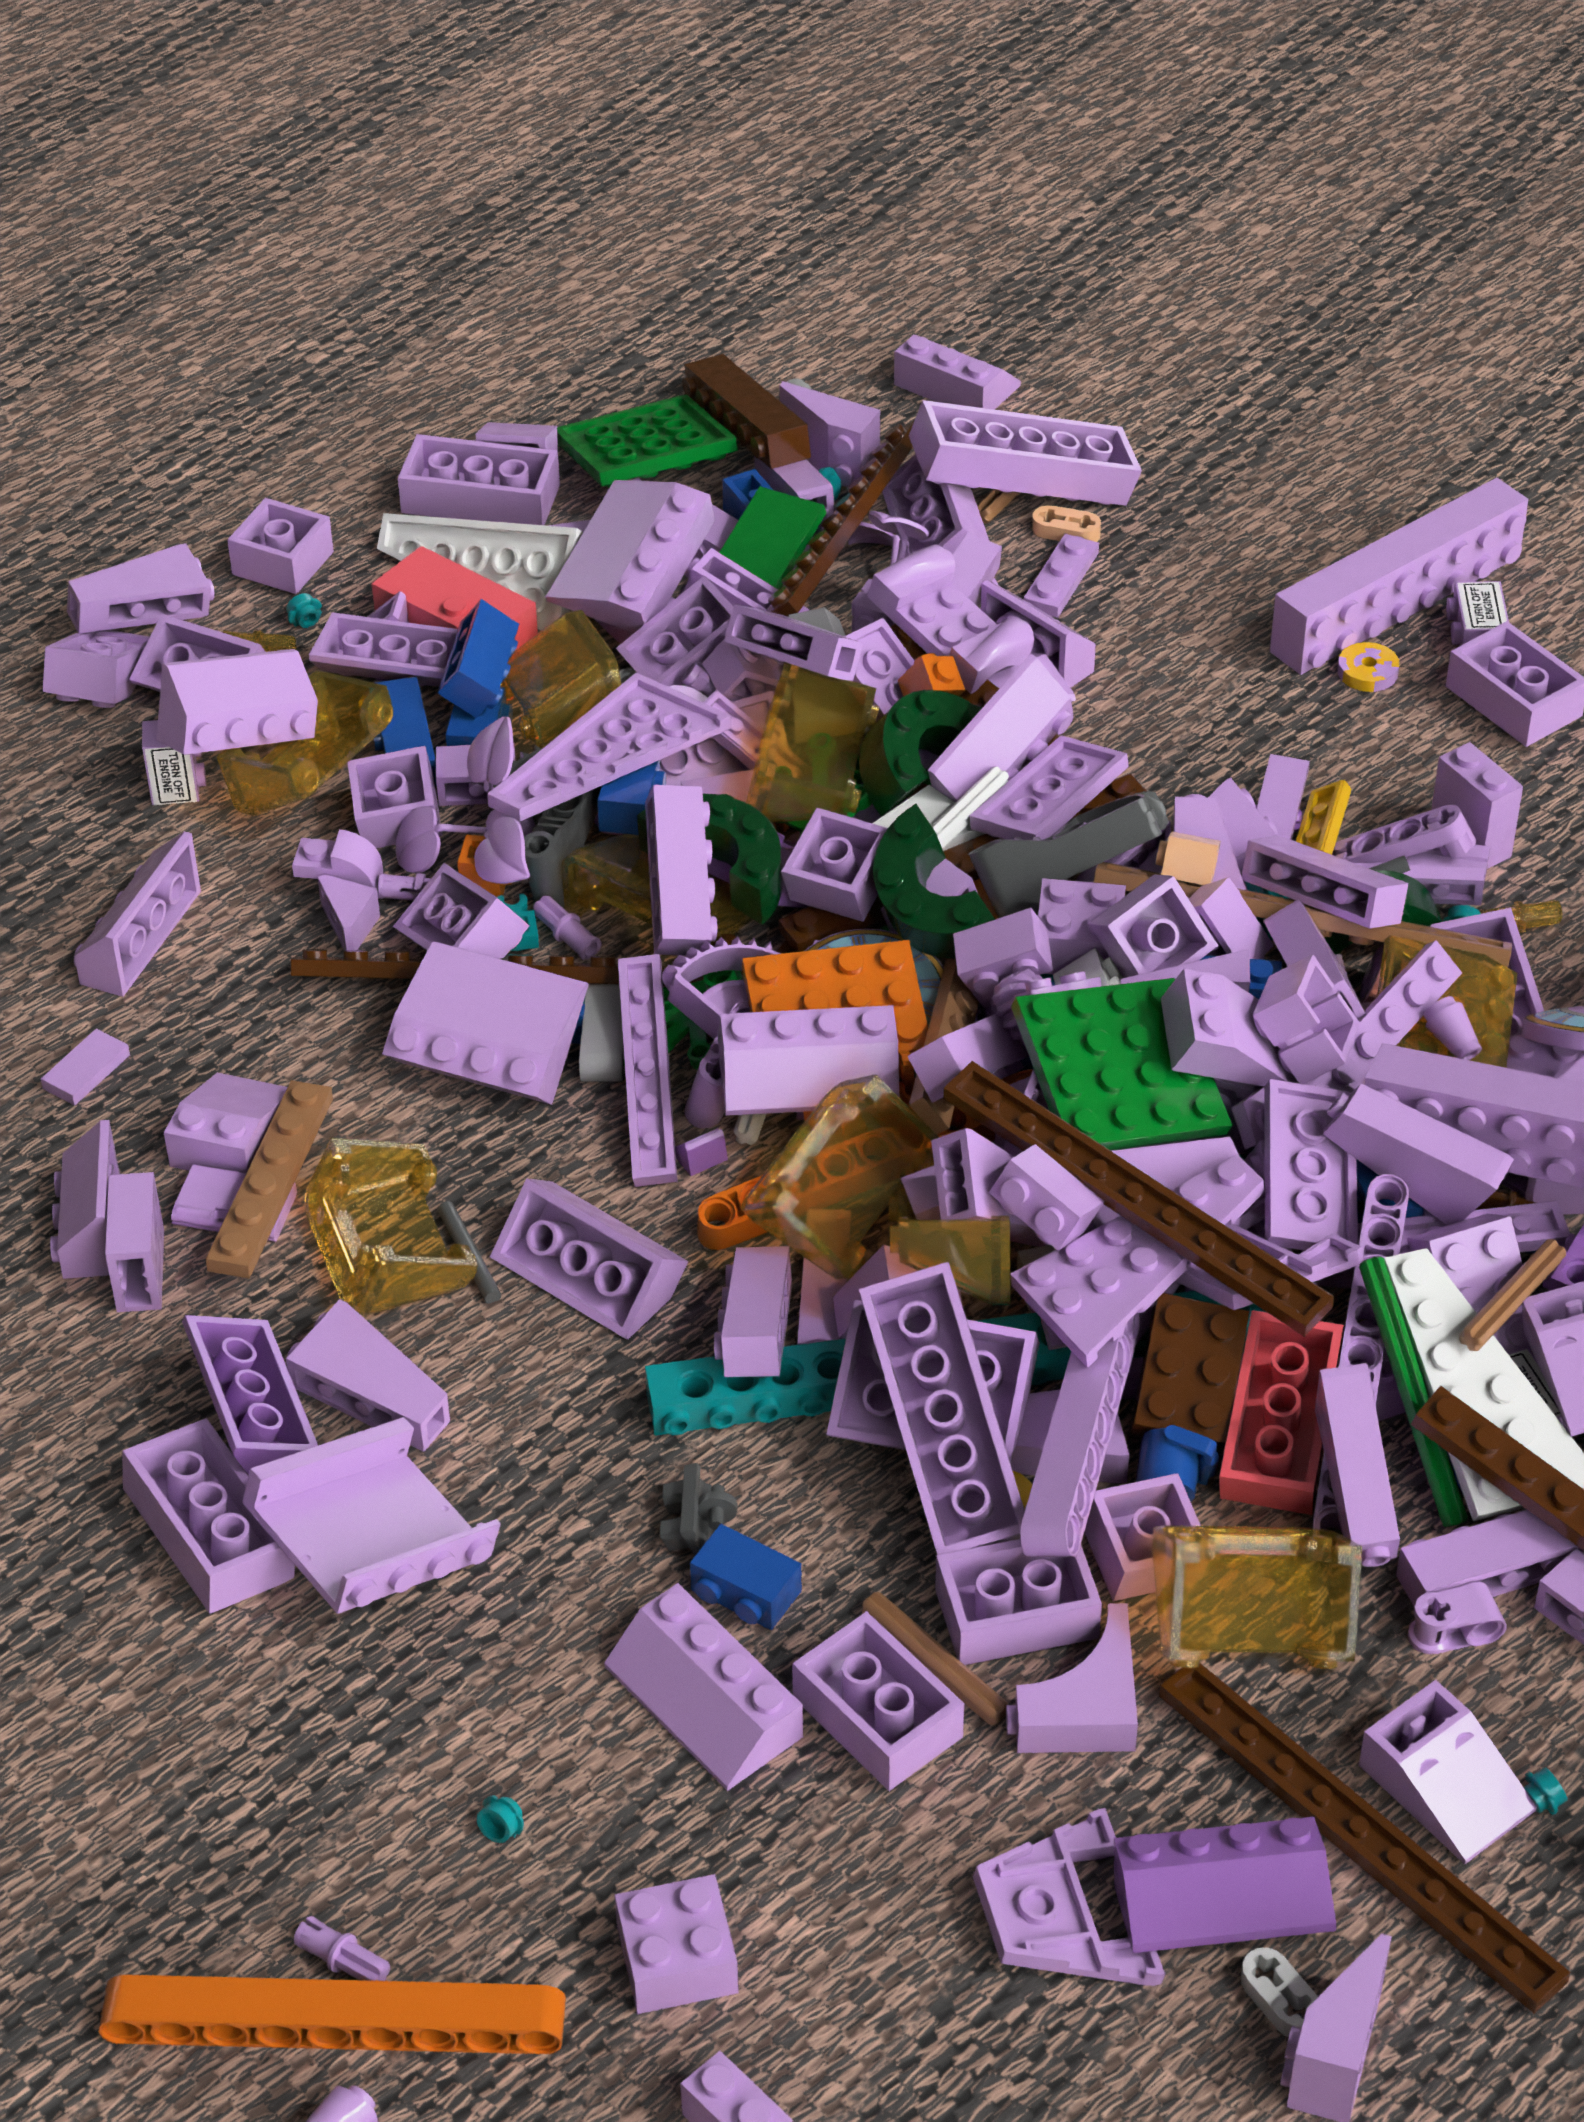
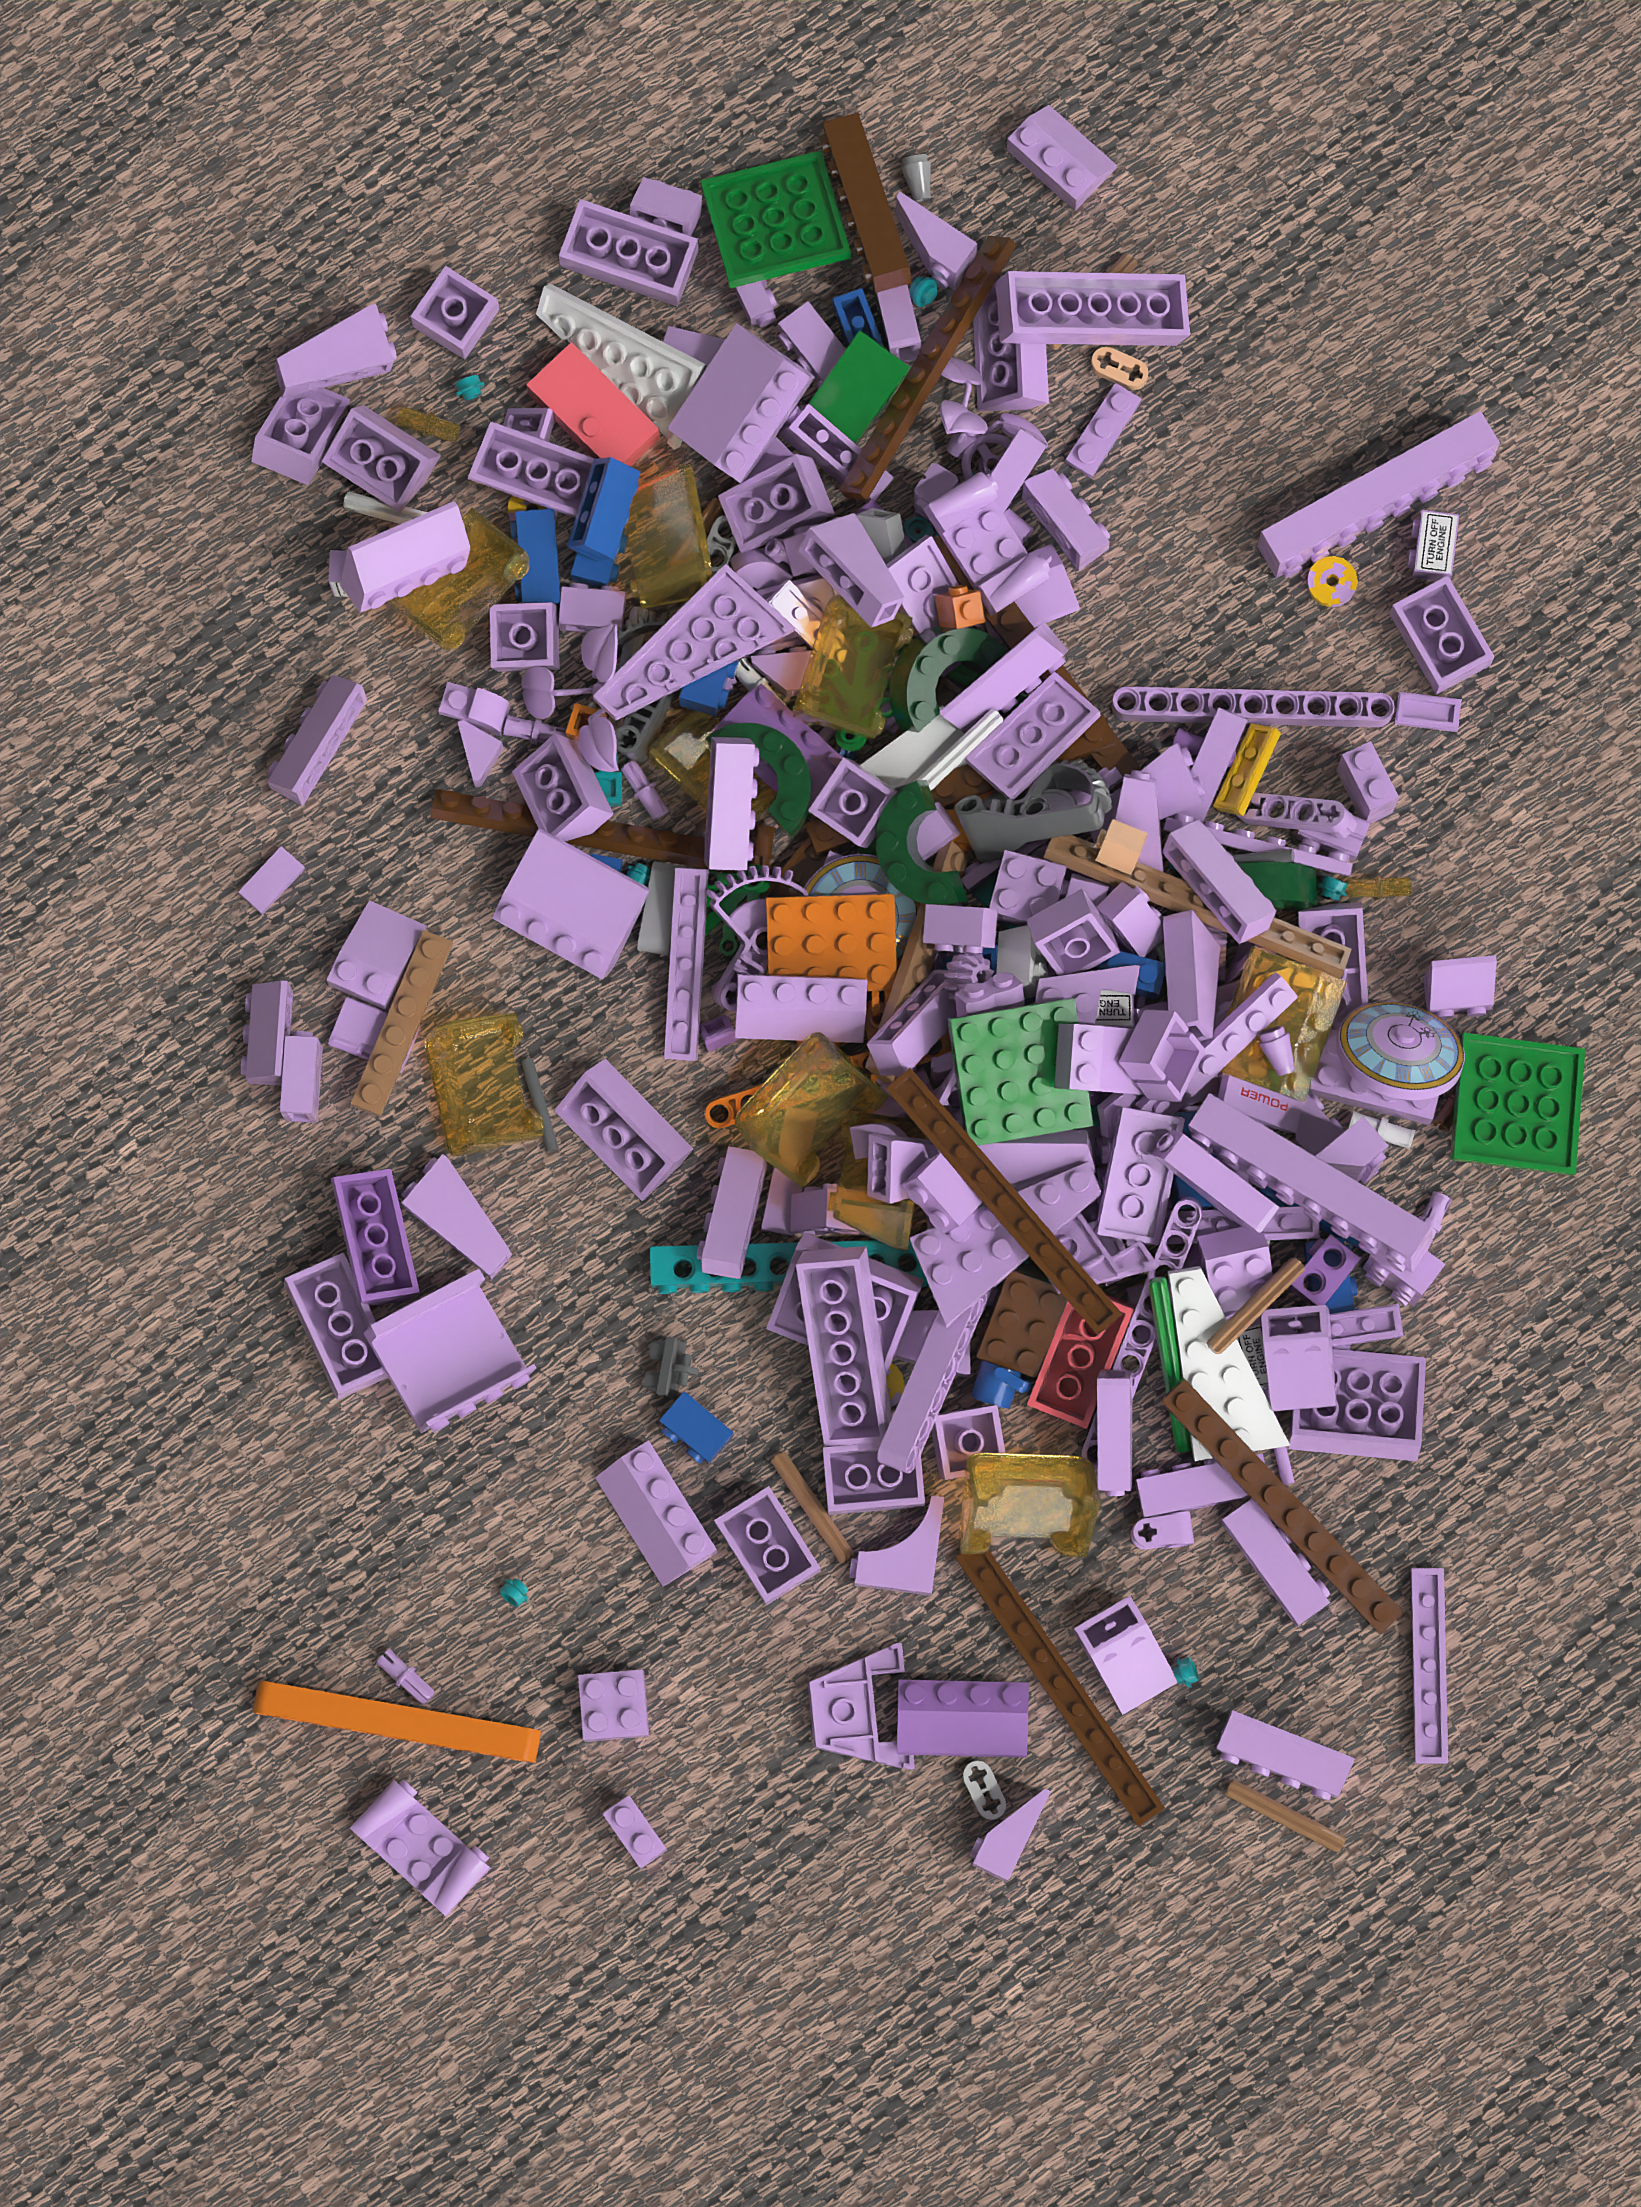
camera: 10 degrees right, 35 degrees up
(1364, 766) = (1265, 698): none -> lavender beam
(1528, 761) = (1428, 711): none -> lavender tile

